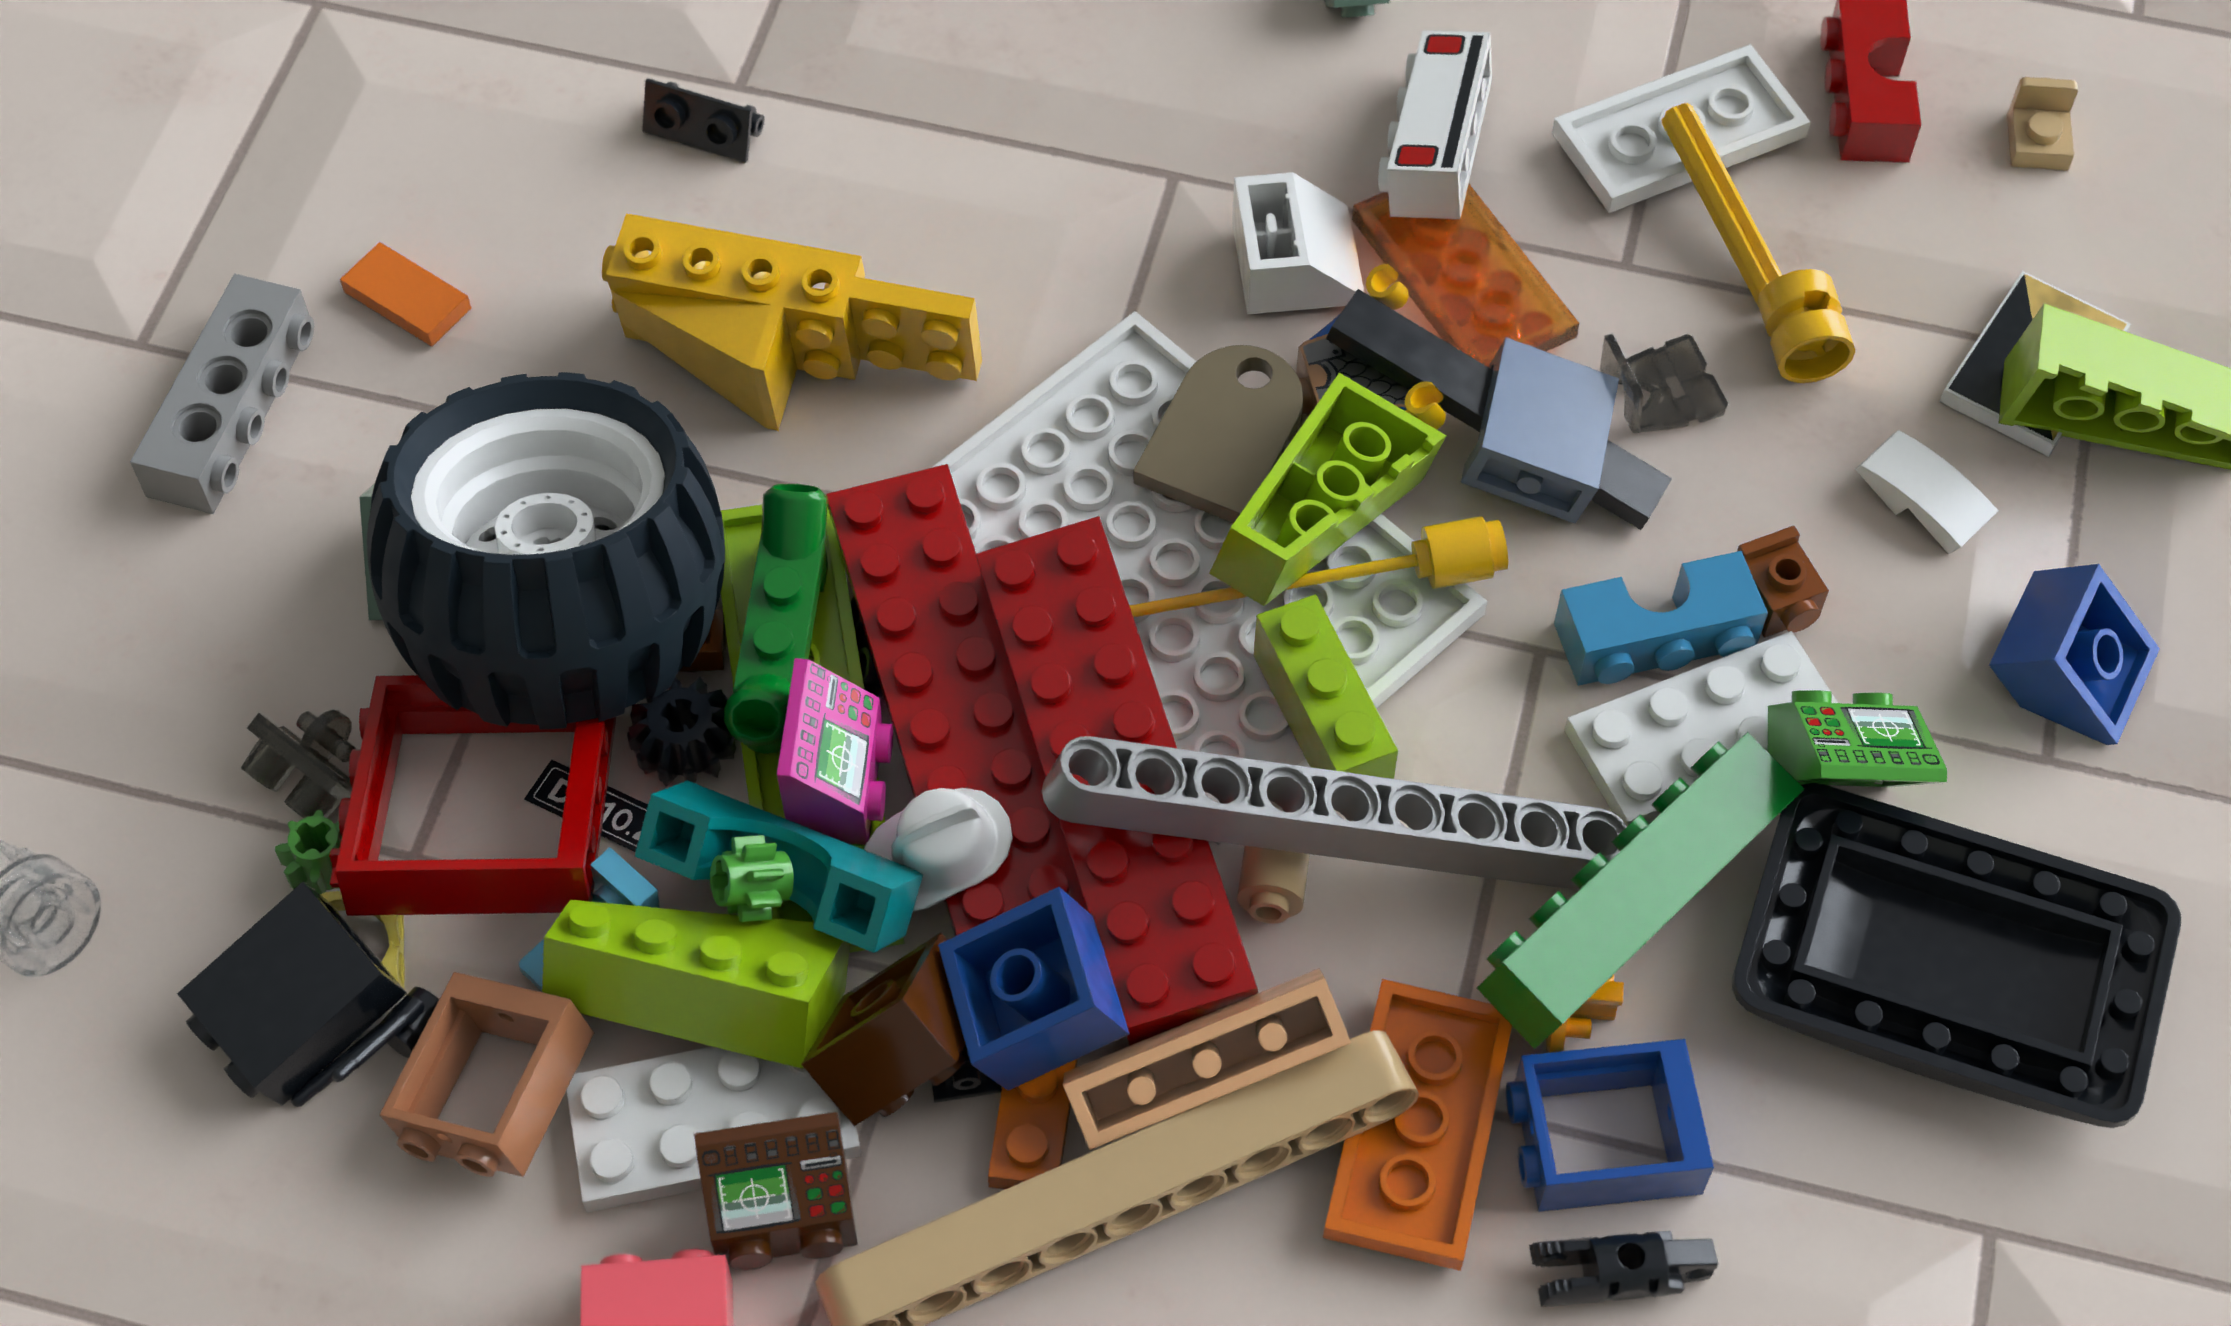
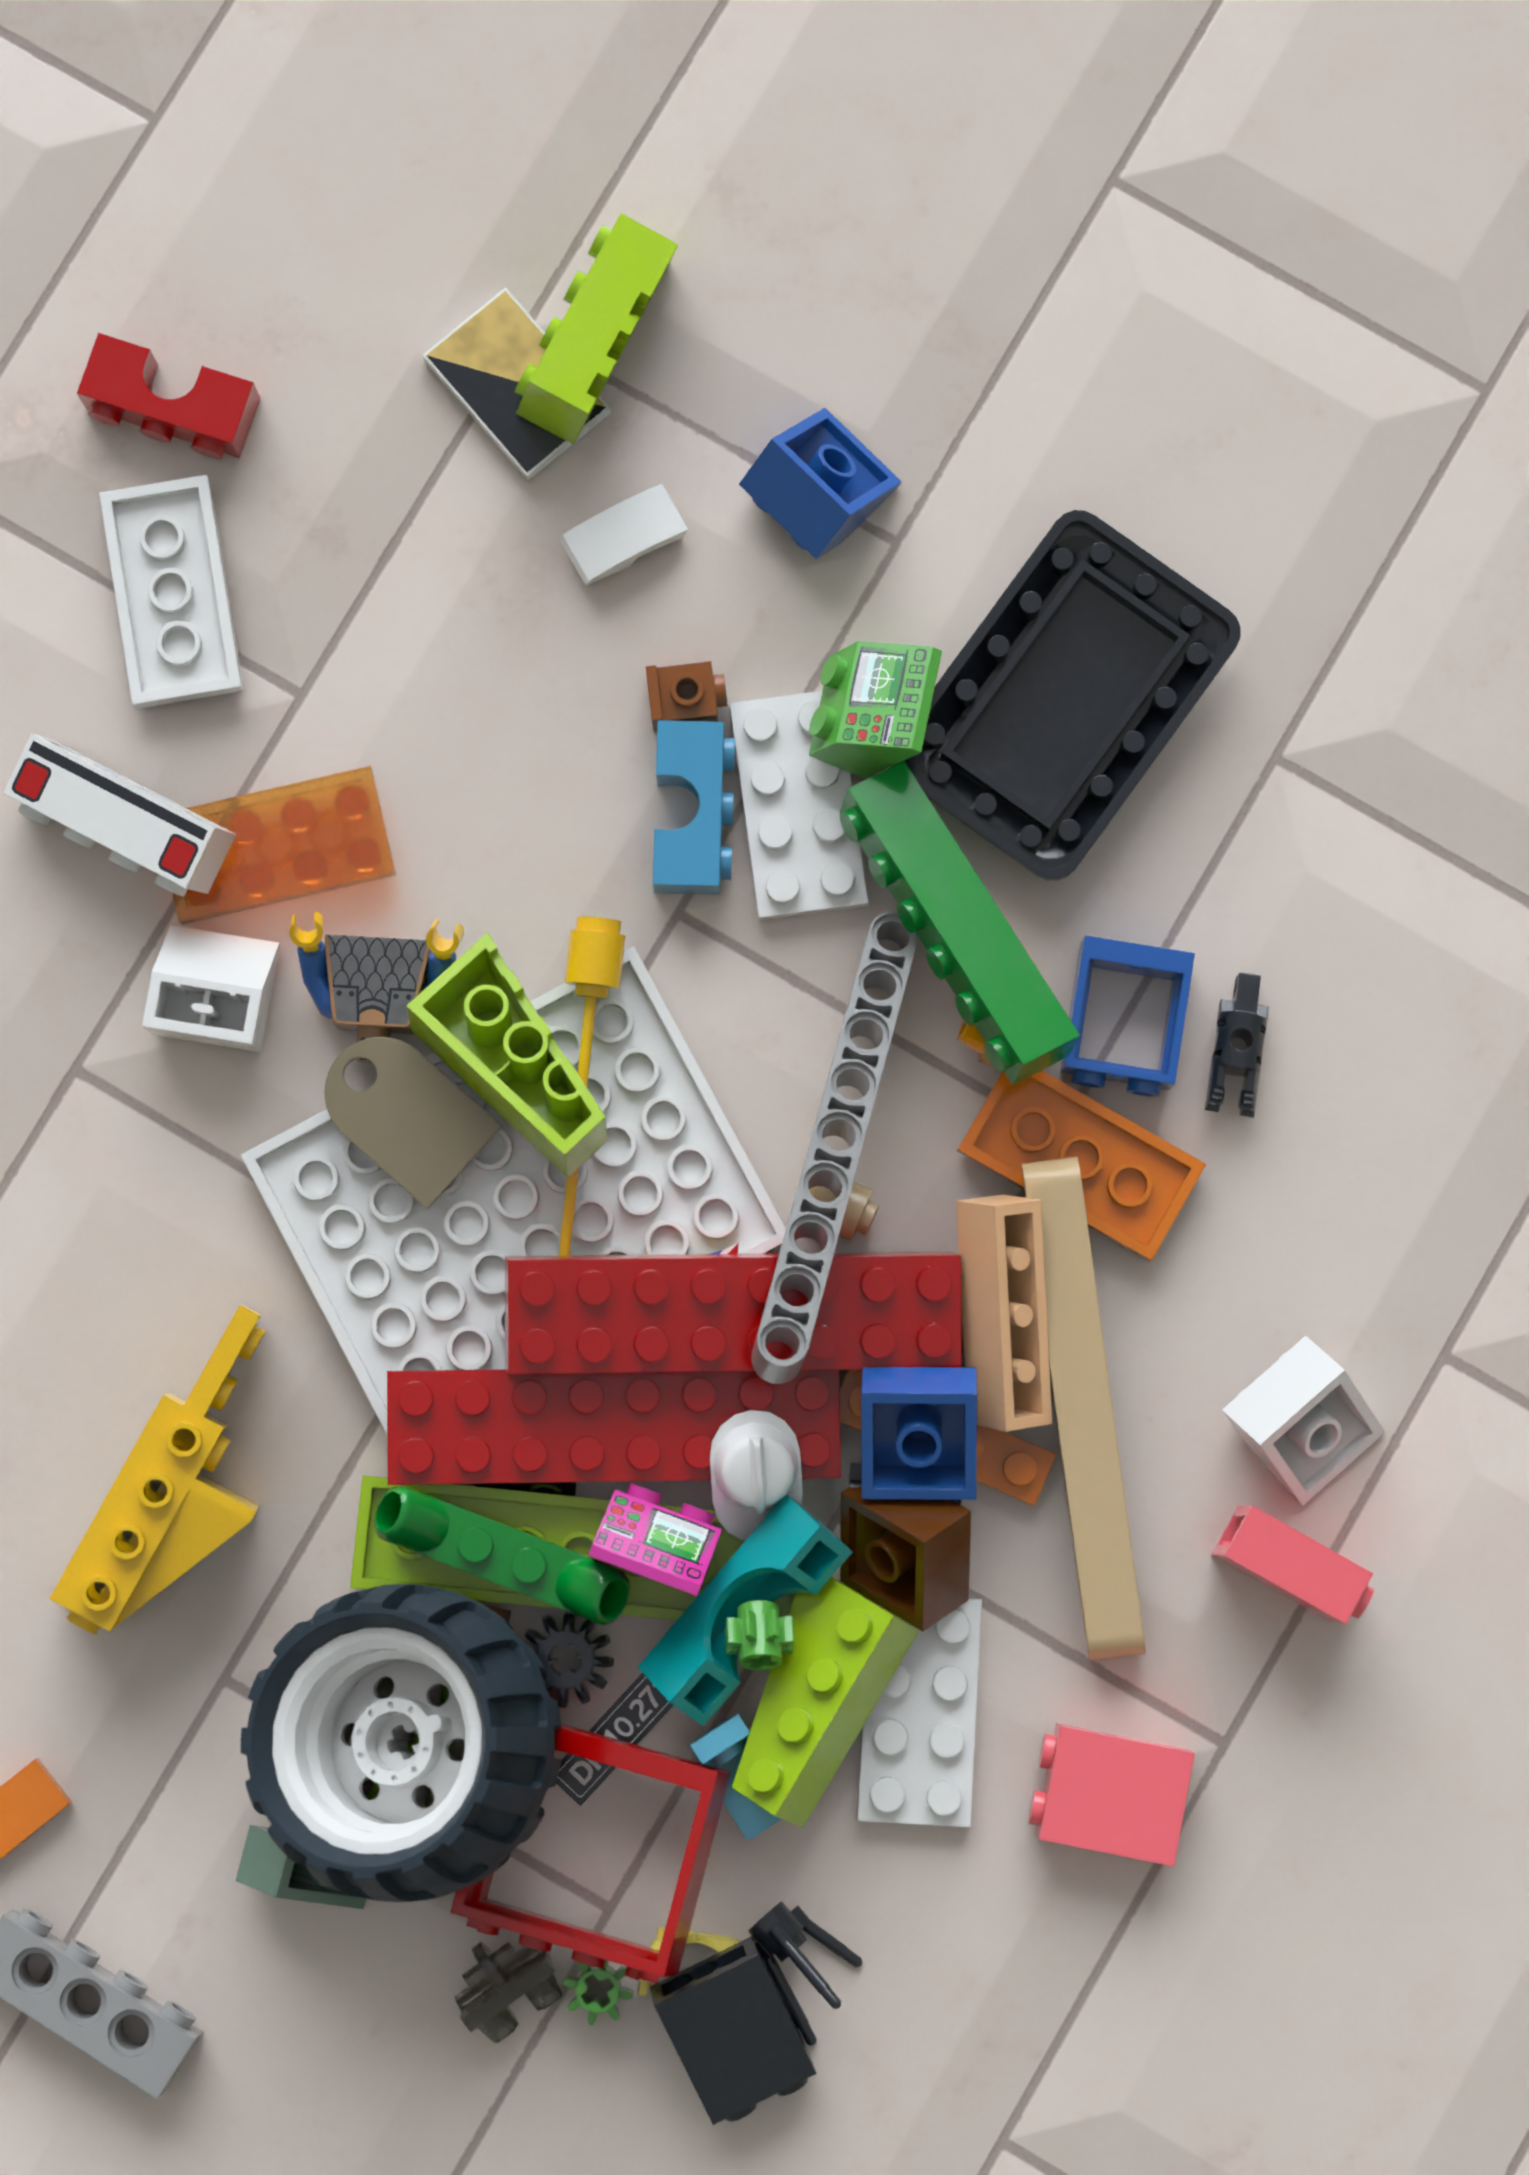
camera: 75 degrees left, 25 degrees up
(461, 1015) = (822, 1922): nougat window -> none
(776, 1190) = (1018, 1674): reddish brown slope -> none
(1321, 691) = (711, 1118): lime brick -> none
(1416, 355) = (448, 872): black tile -> none
(1542, 431) = (480, 838): panel -> none
(1672, 376) = (448, 700): clear smoke piece -> none
(1720, 197) = (280, 589): yellow axle -> none
(1806, 326) = (433, 570): yellow wheel -> none
(2042, 123) = (265, 267): tan bracket -> none

